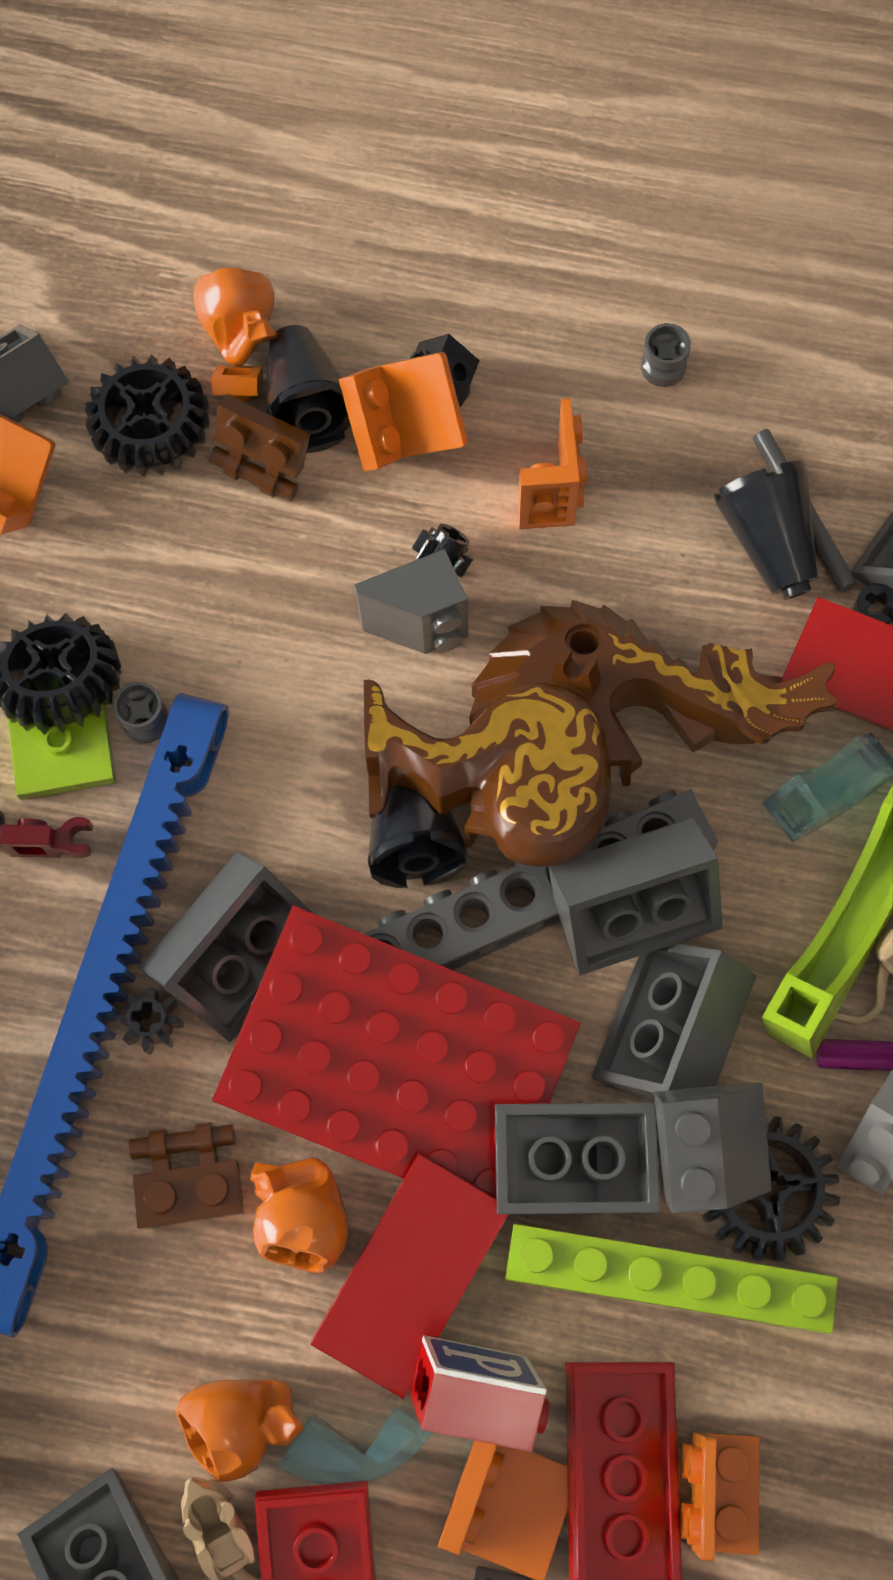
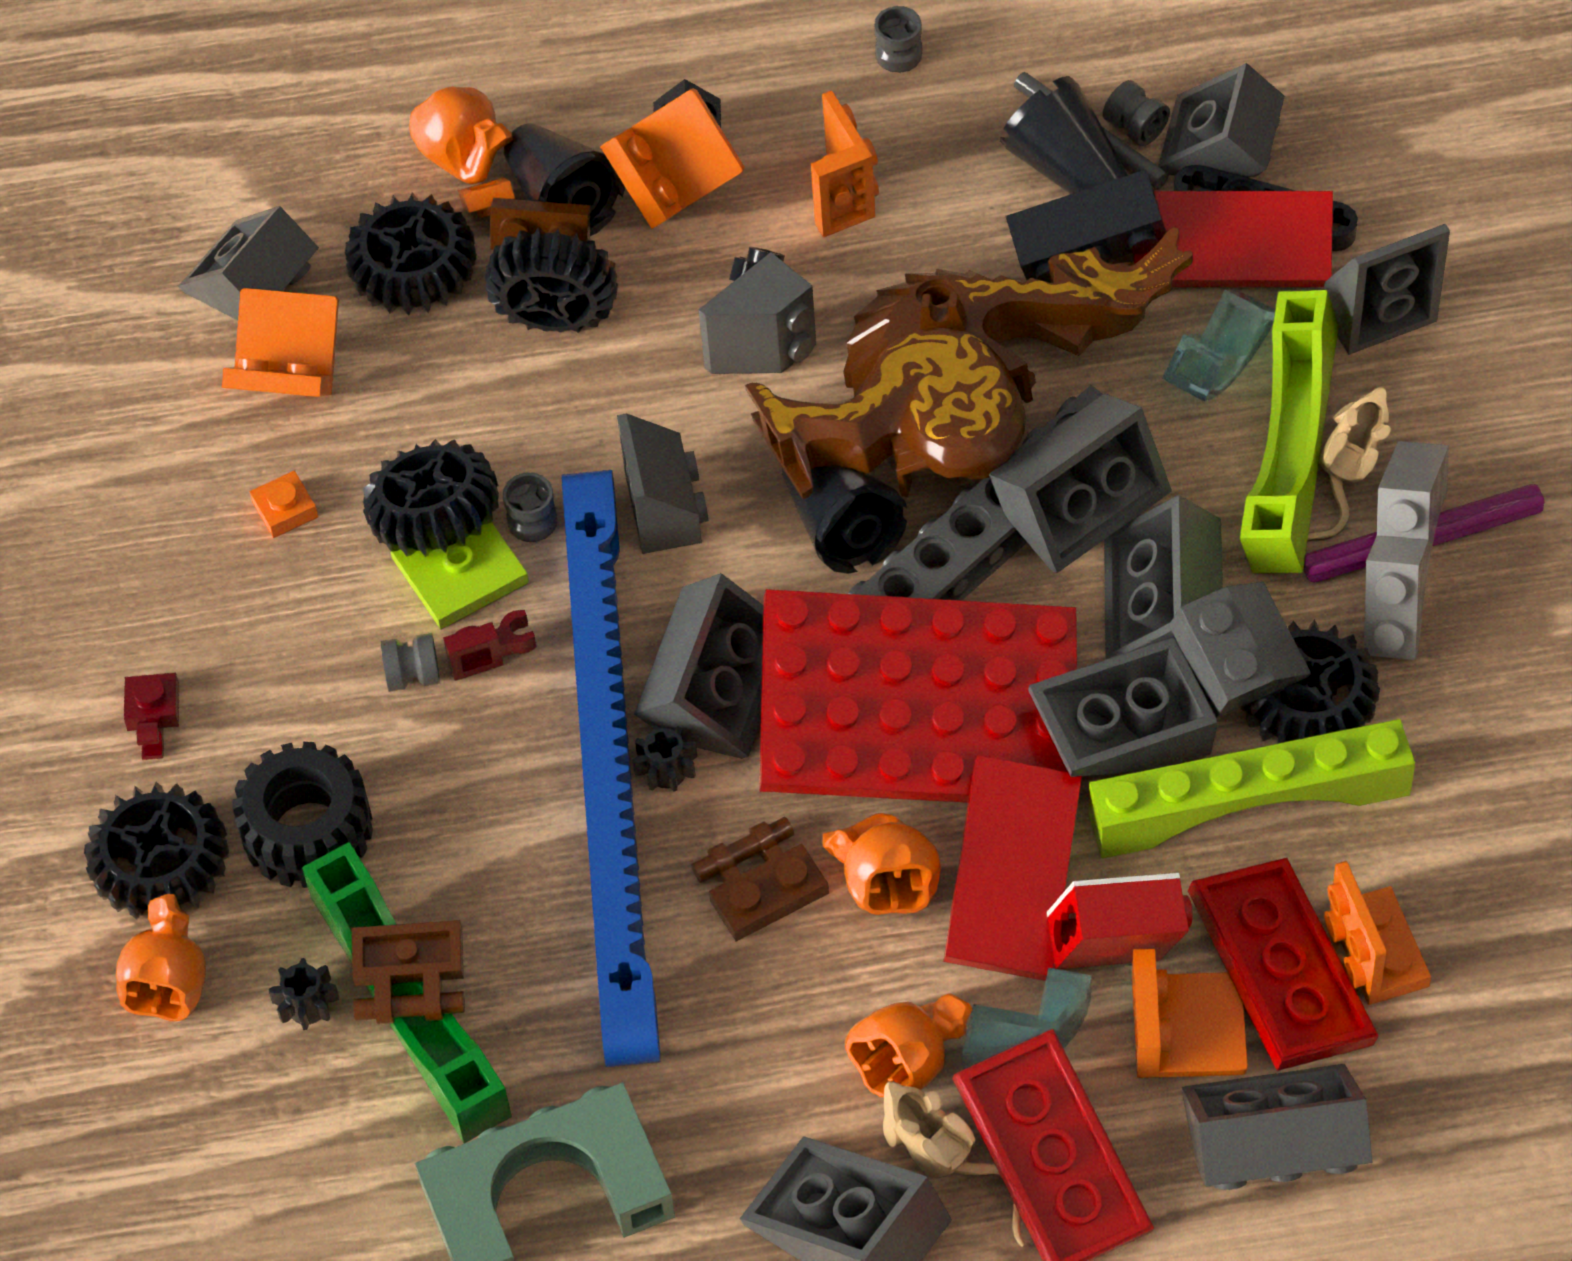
camera: 20 degrees left, 15 degrees down
(248, 494) = (551, 281): none -> black gear
(259, 737) = (661, 485): none -> dark grey slope
(758, 617) = (1112, 217): none -> black brick
(851, 510) = (1136, 113): none -> dark grey wheel

